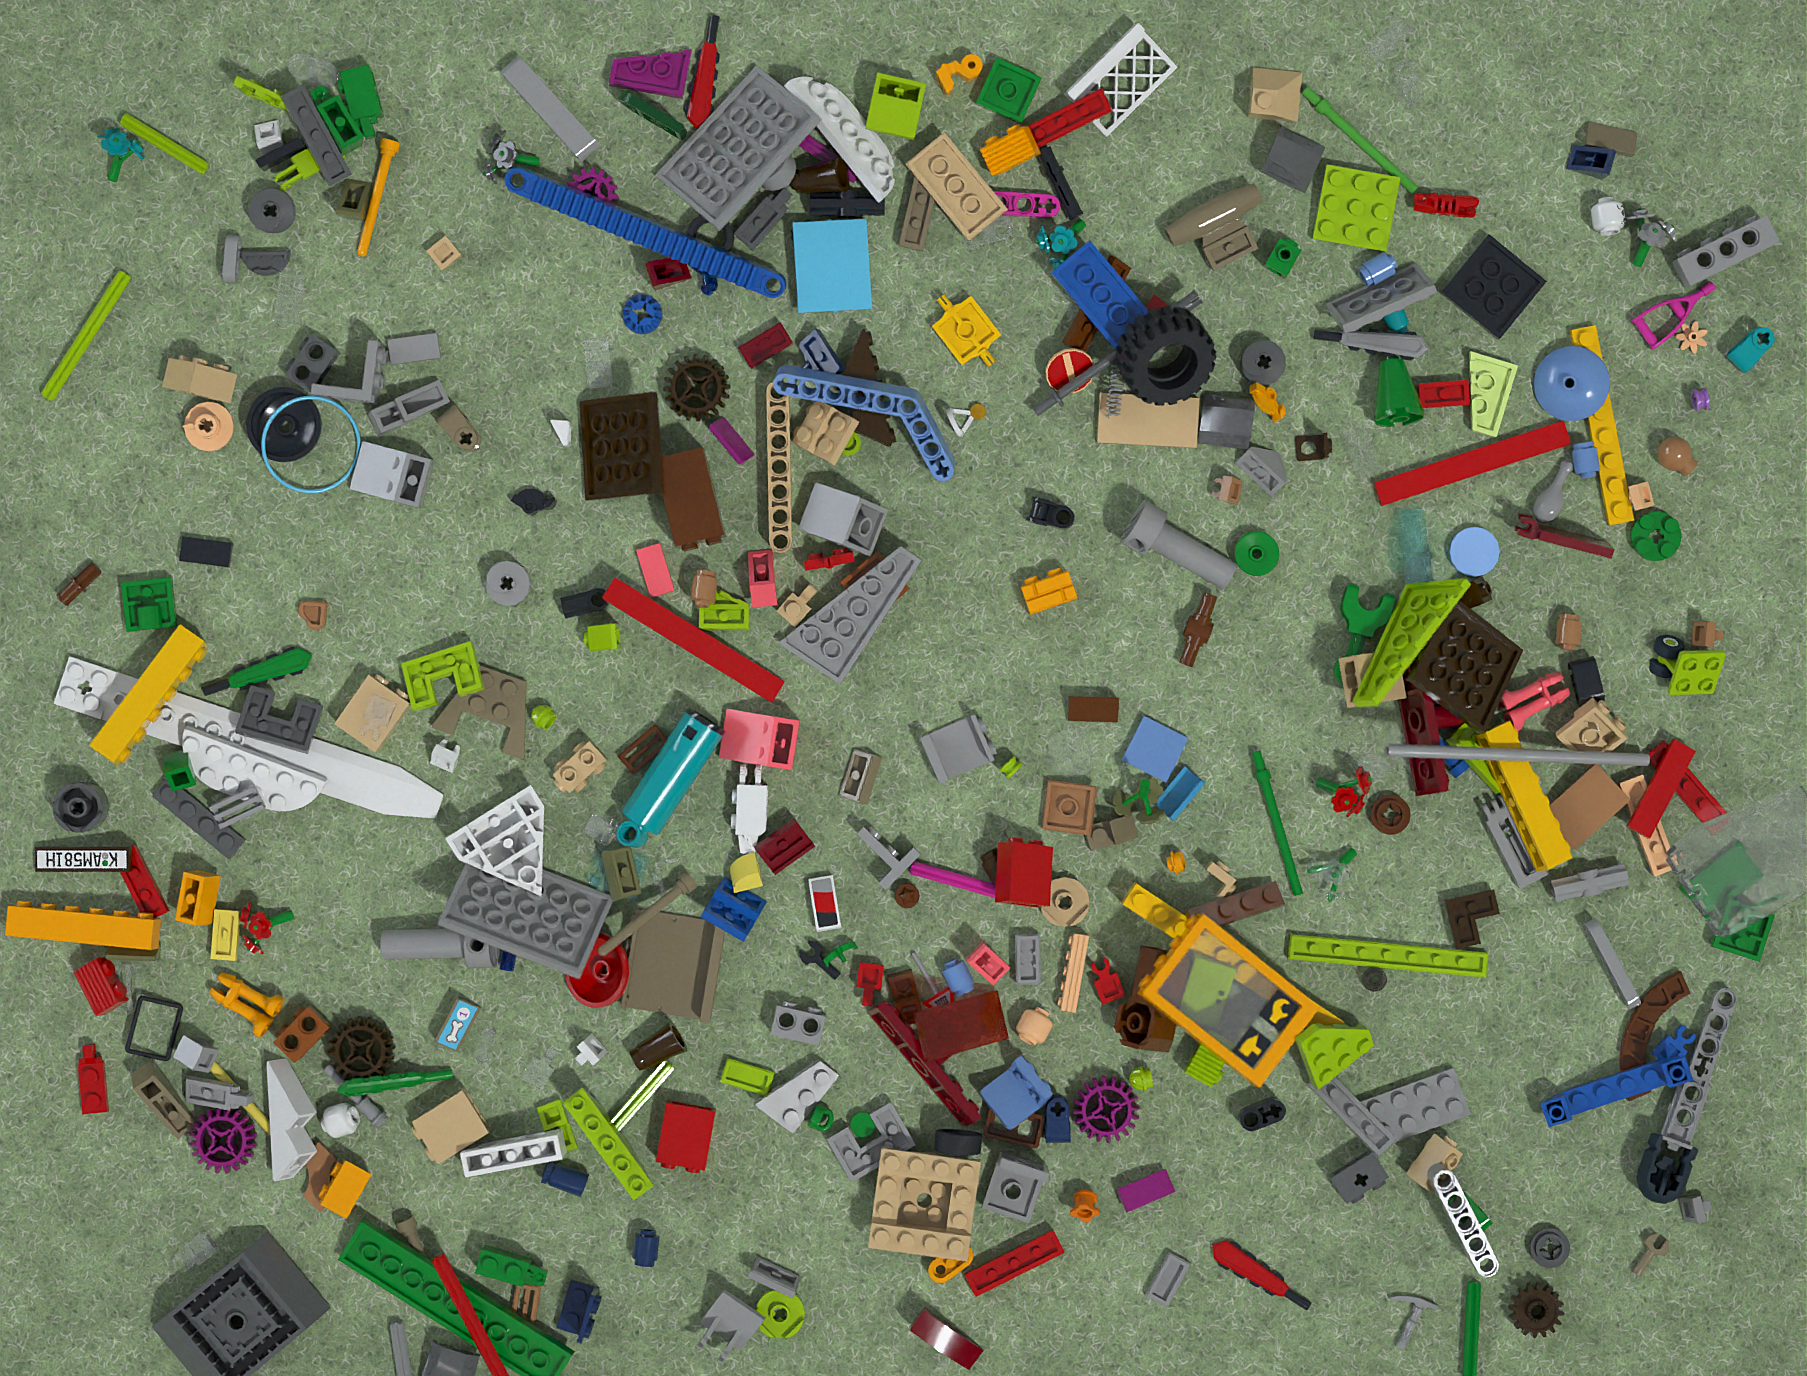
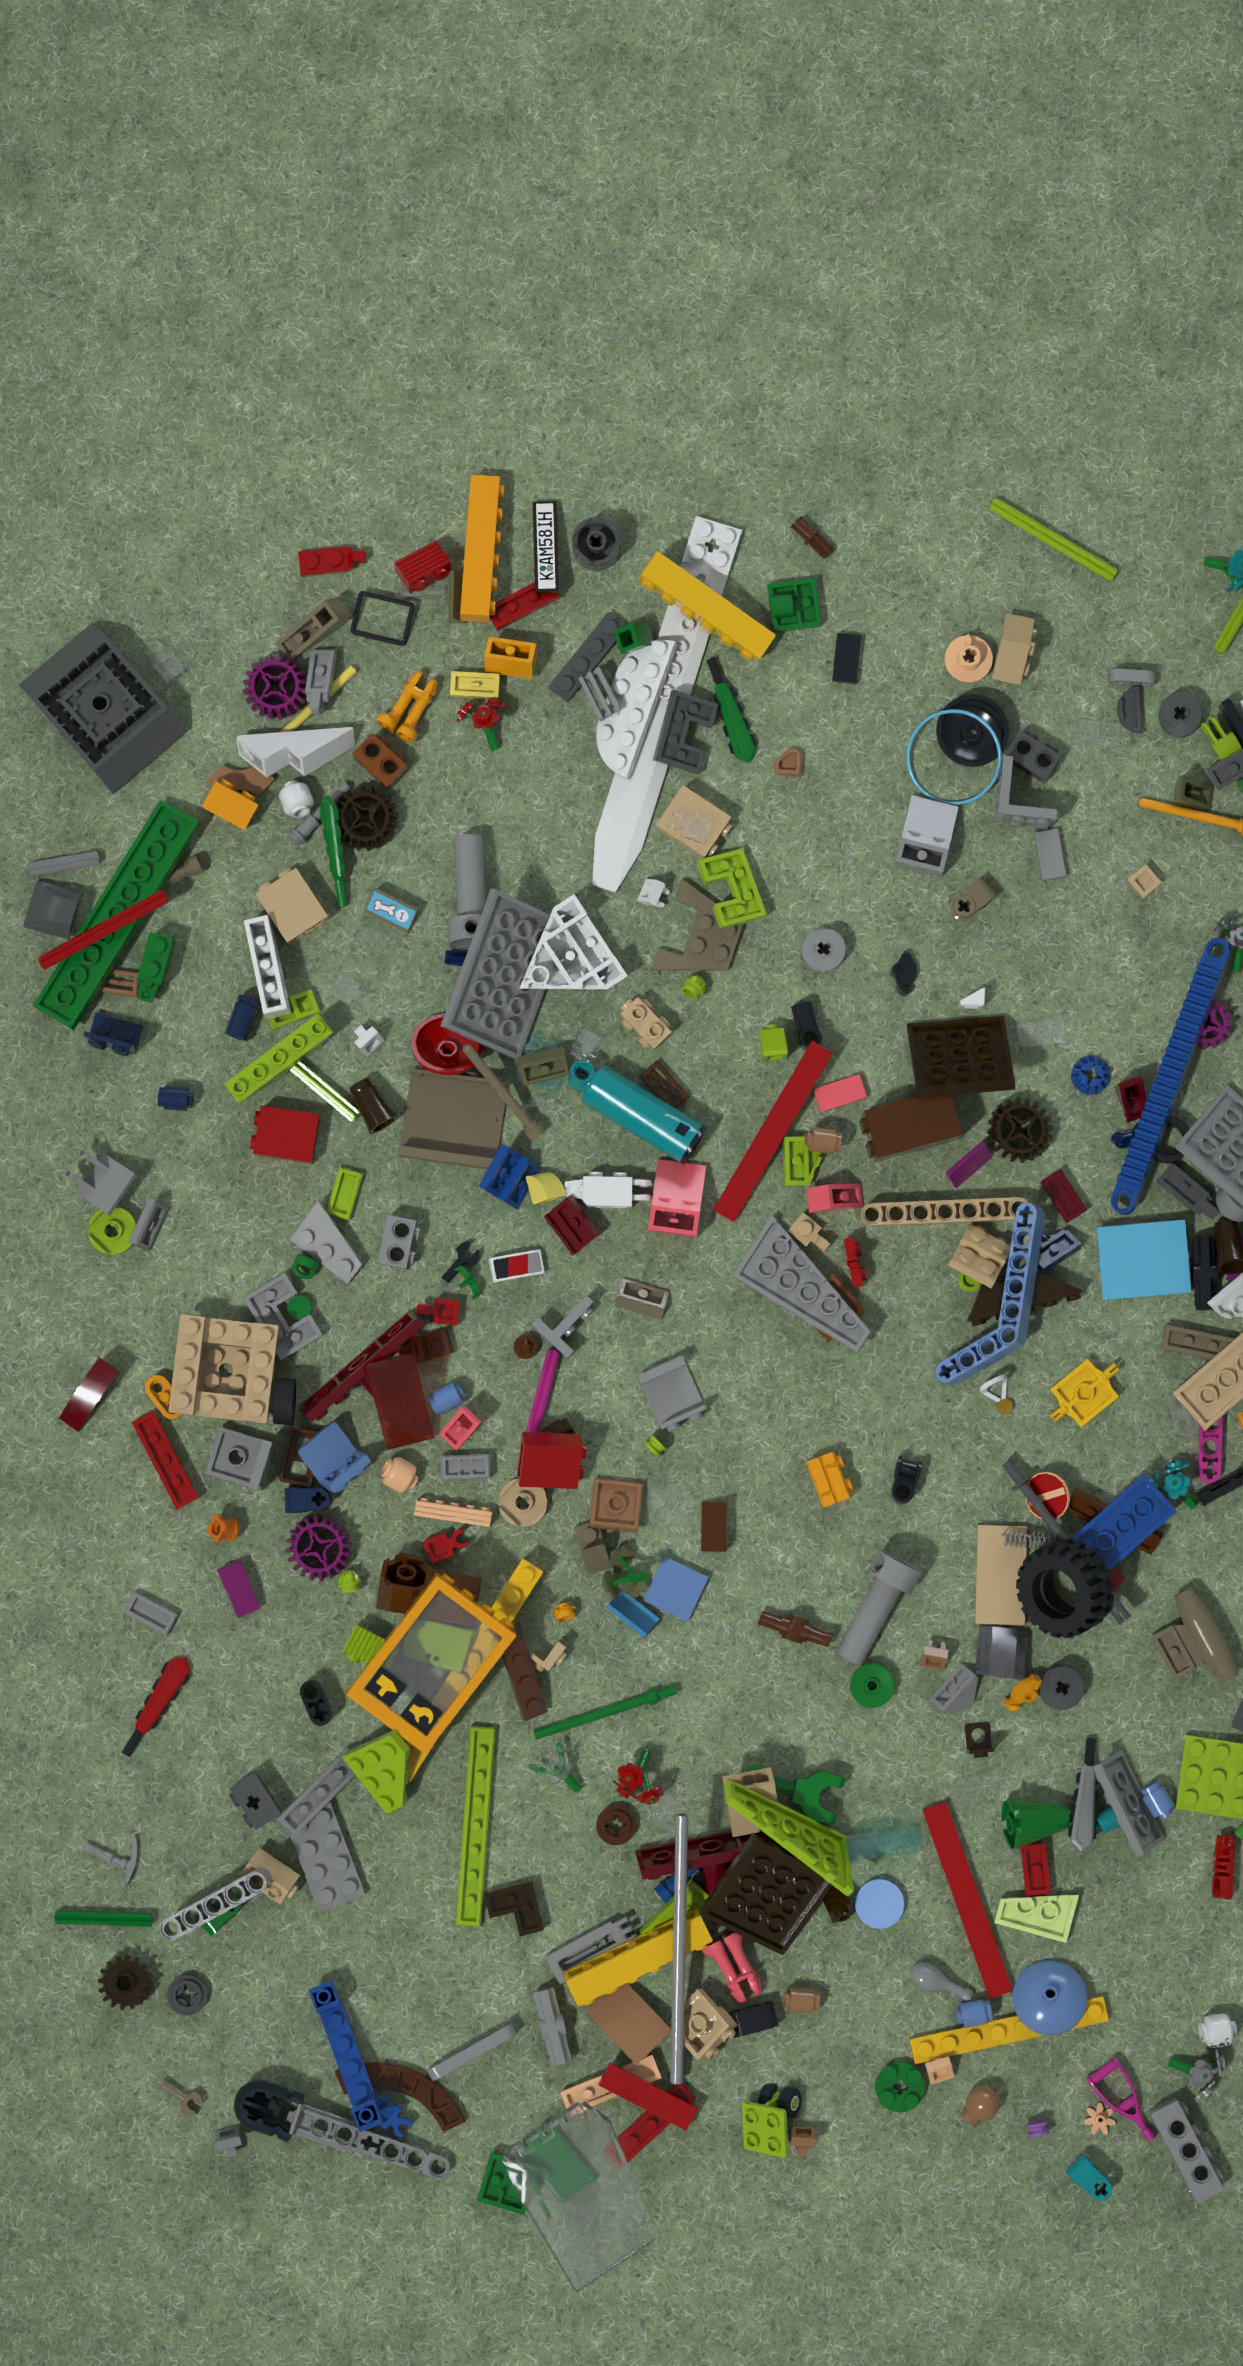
camera: 95 degrees right, 5 degrees down
(196, 1053) = (359, 659): light grey brick -> none
(408, 408) = (992, 850): light grey slope -> none
(843, 519) = (895, 1275): light grey slope -> none
(940, 998) = (427, 1385): piece -> none
(1282, 257) = (1166, 1705): green brick -> none
(1374, 986) = (444, 1812): clear smoke plate -> none
(1493, 287) = (1143, 1917): black plate -> none
(1562, 537) = (896, 1990): dark red tile -> none

